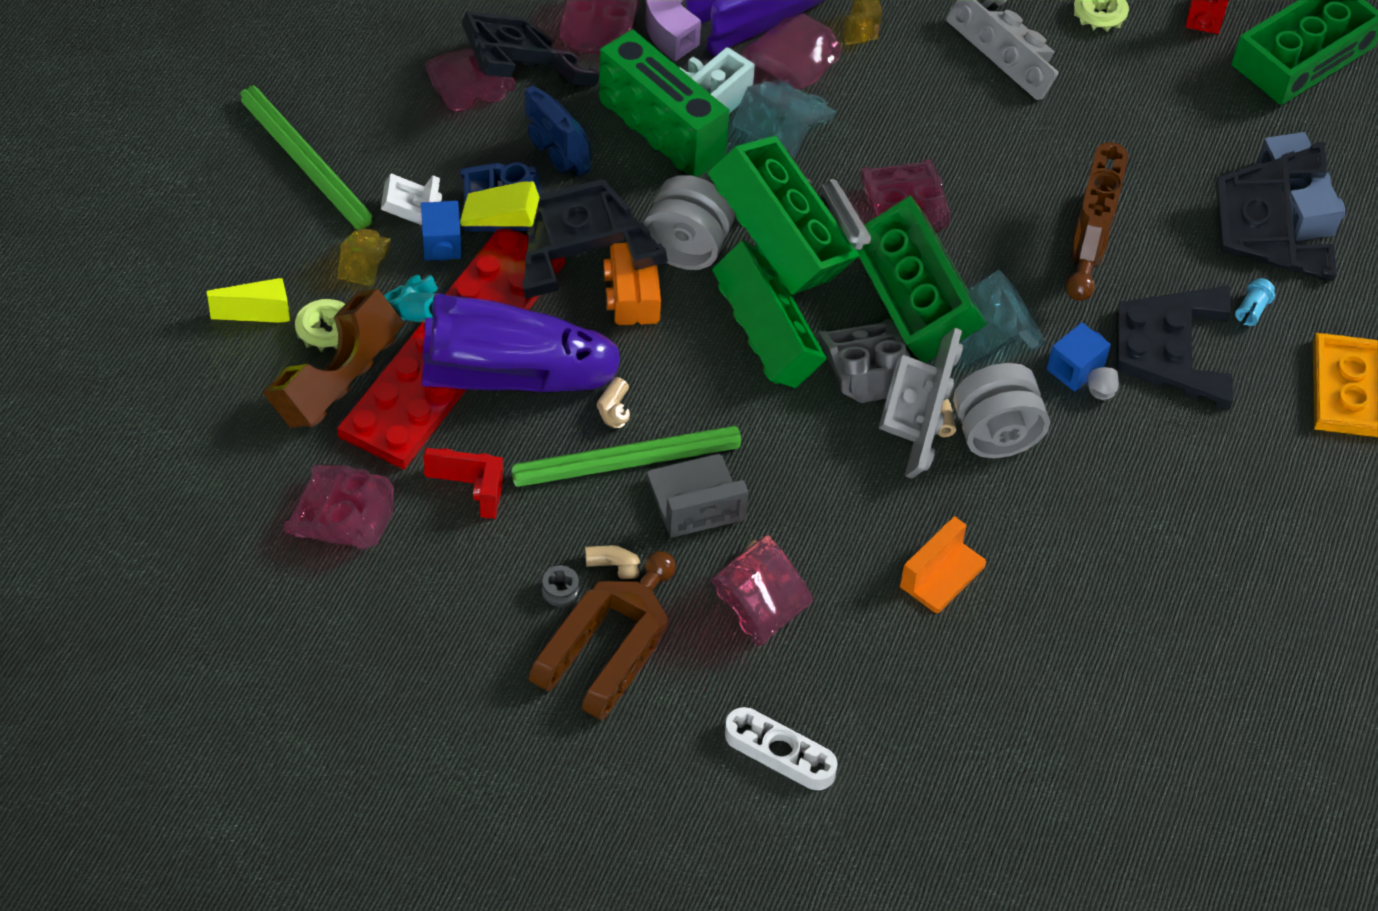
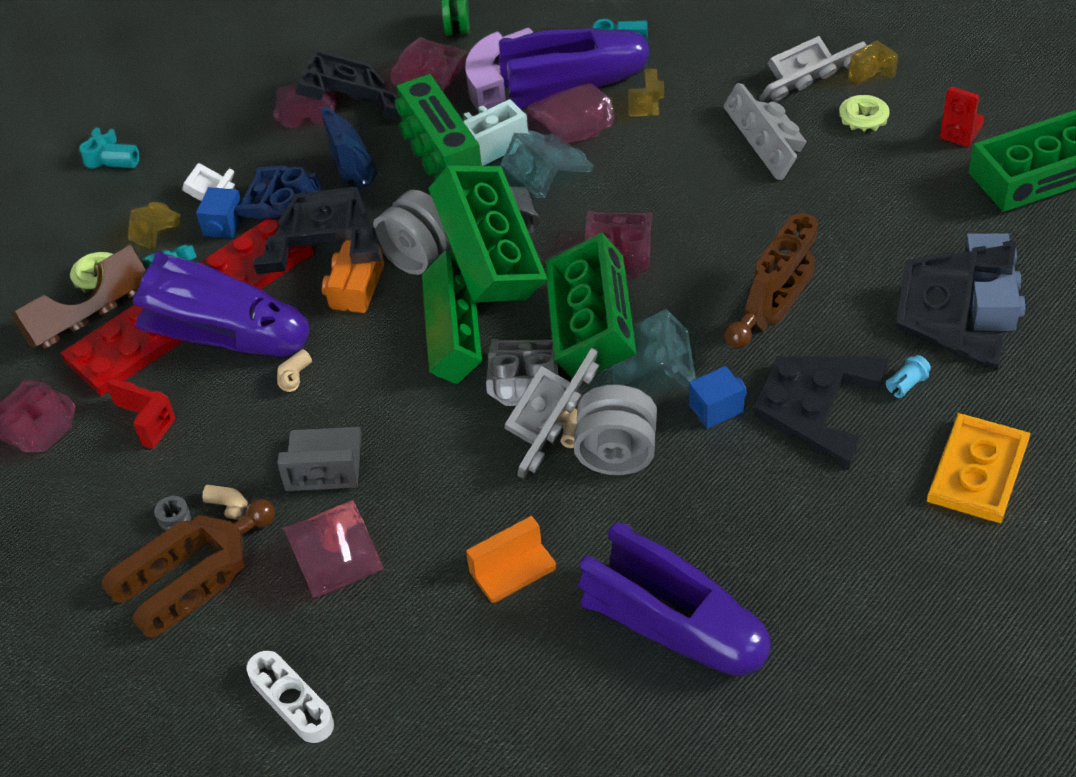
camera: 25 degrees right, 5 degrees down
(245, 178) = (102, 150): none -> teal bar
(250, 302) = (46, 245): neon yellow slope -> none
(306, 158) = (150, 146): bright green axle -> none
(502, 206) = (268, 197): neon yellow slope -> none
(625, 456) = (282, 415): bright green axle -> none
(845, 214) = (550, 244): light grey axle -> none
(1103, 383) = (732, 424): light grey hinge -> none
(1128, 578) = (716, 634): none -> dark purple piece

